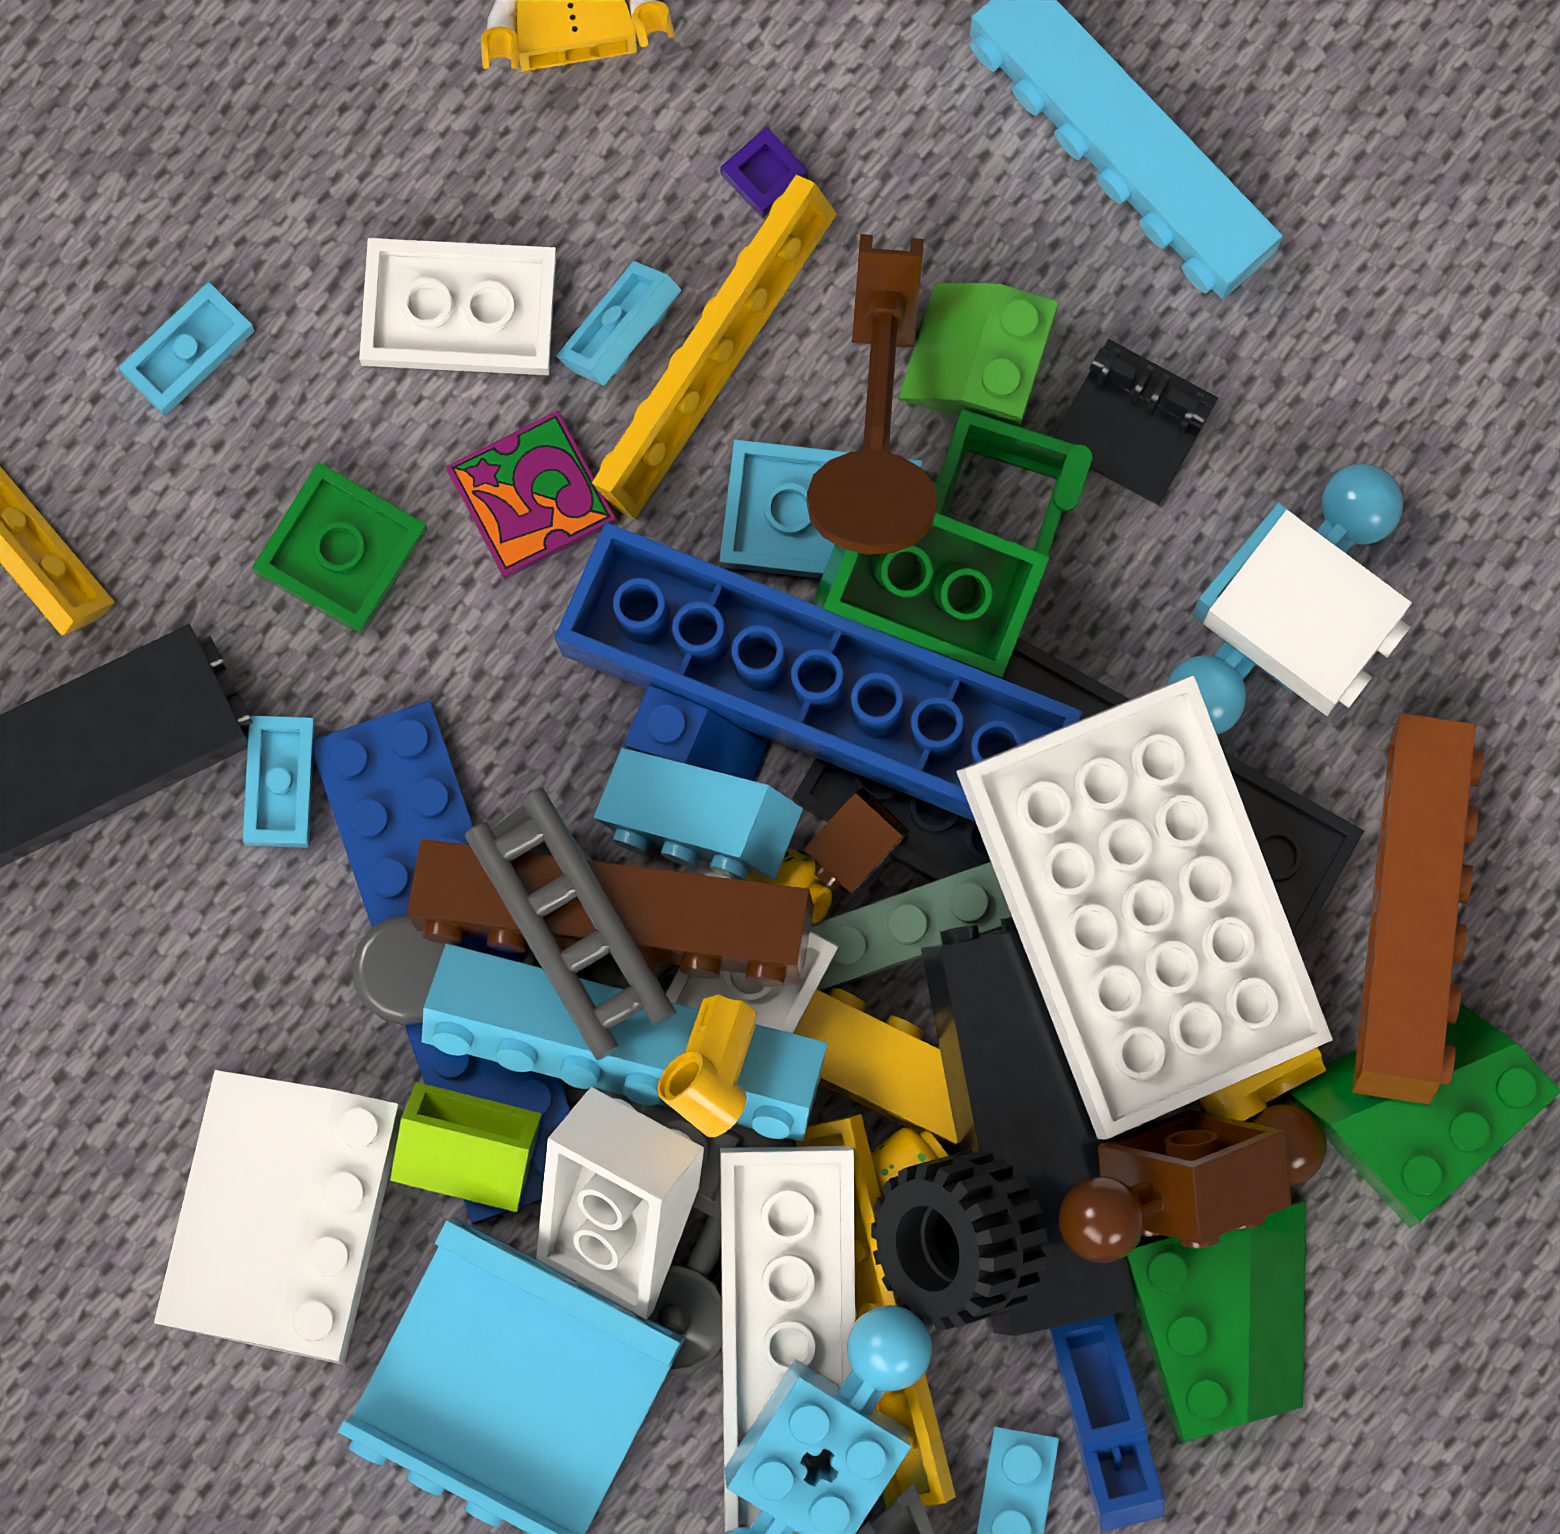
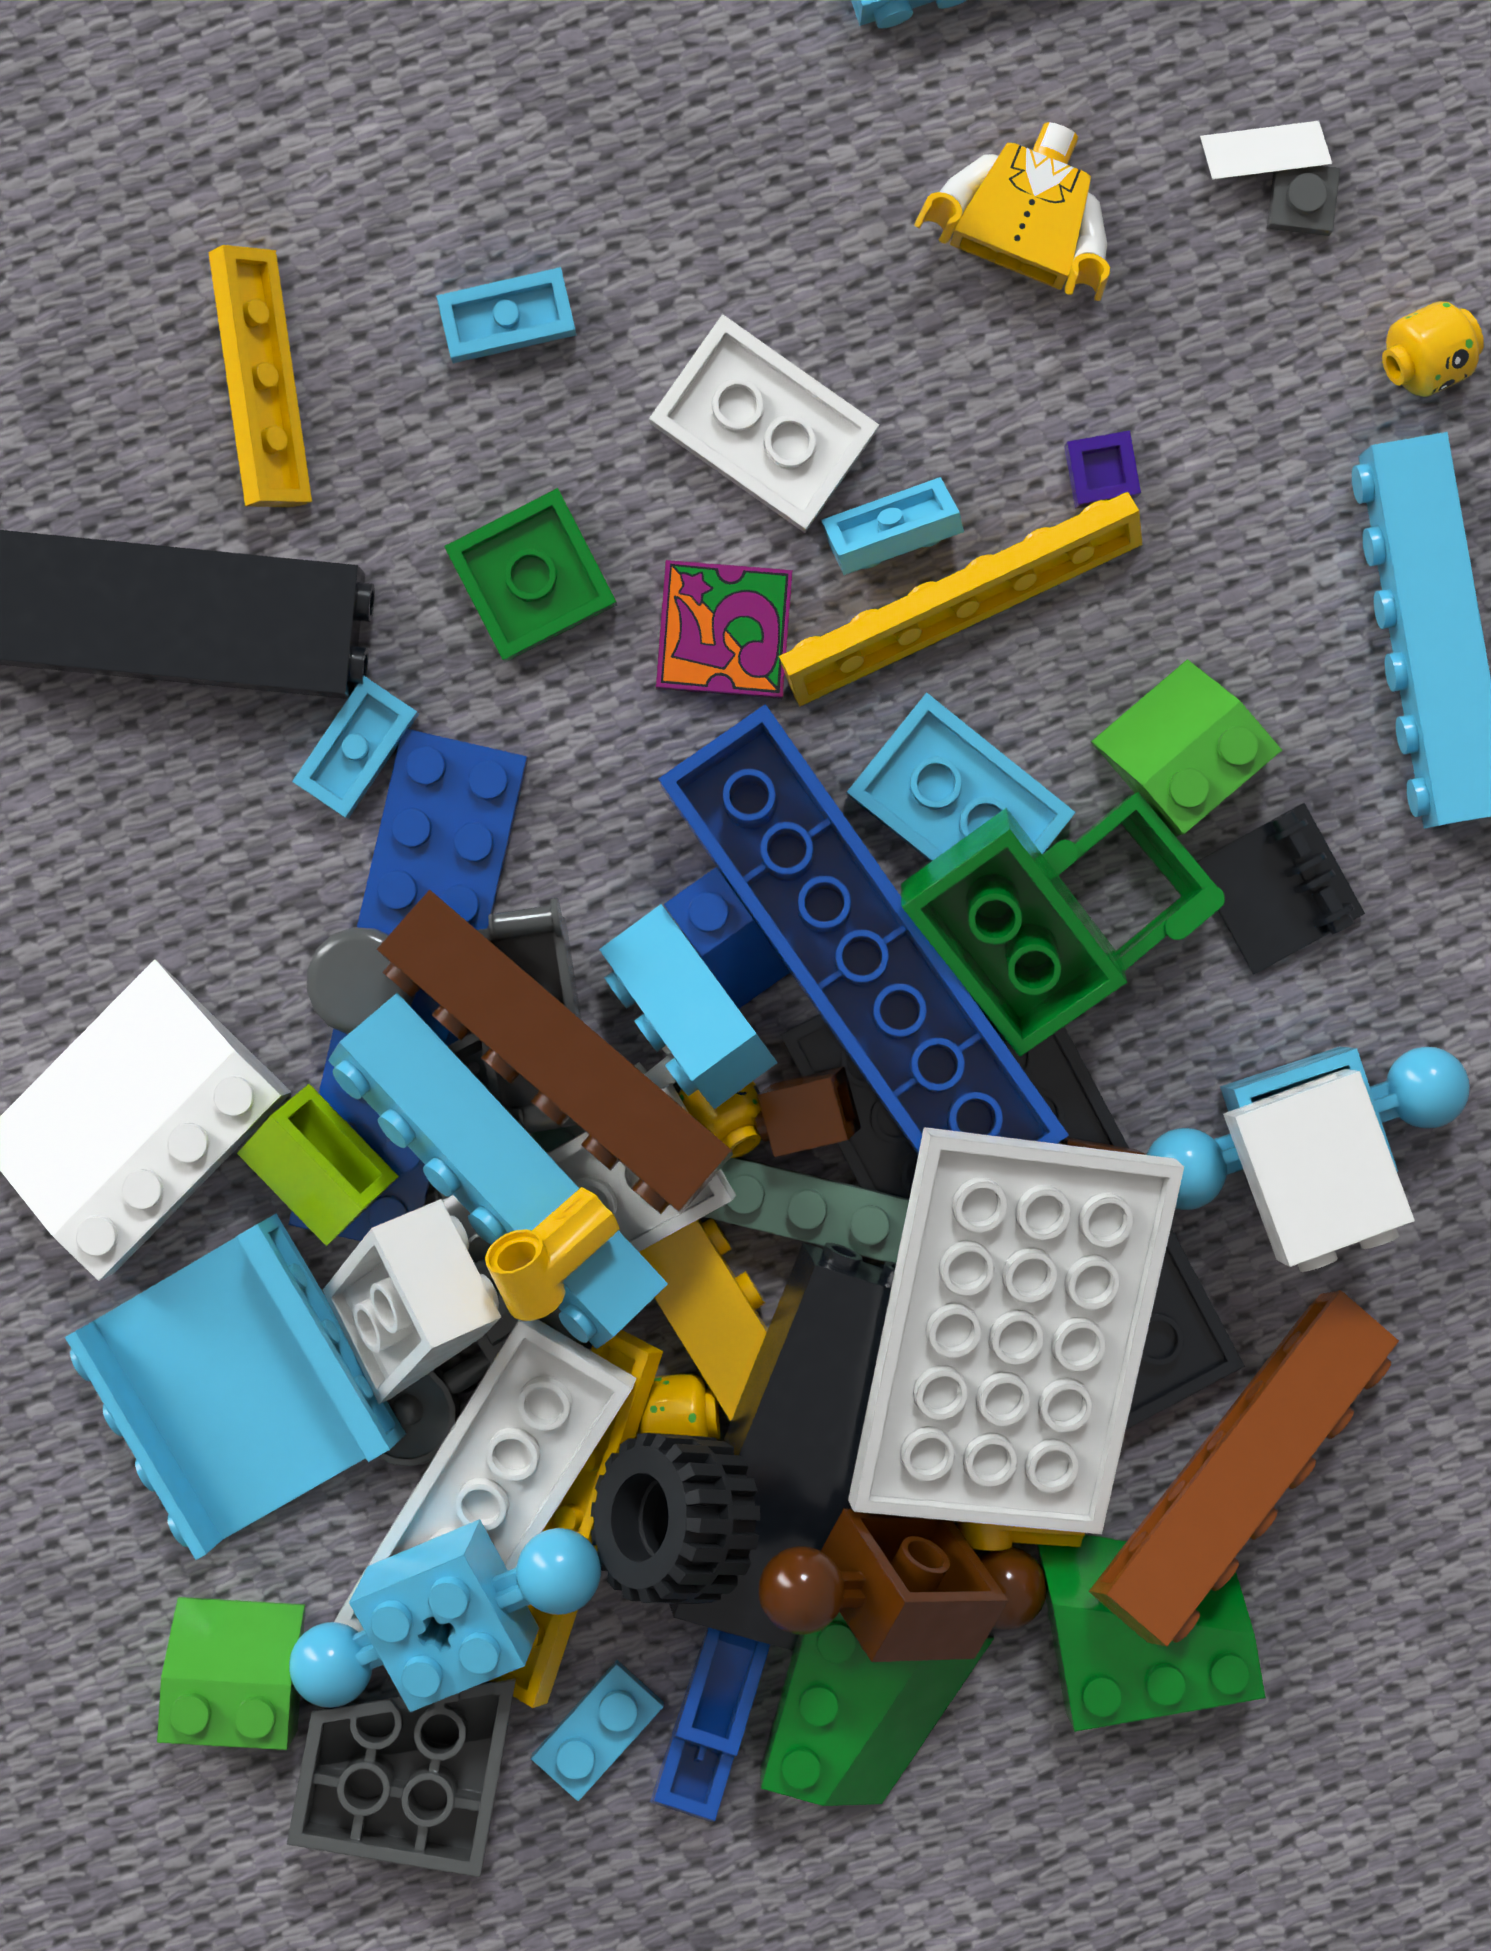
camera: 40 degrees right, 10 degrees up
(559, 964) = (477, 1081): dark grey bar -> none
(870, 496) = (1003, 839): reddish brown piece -> none

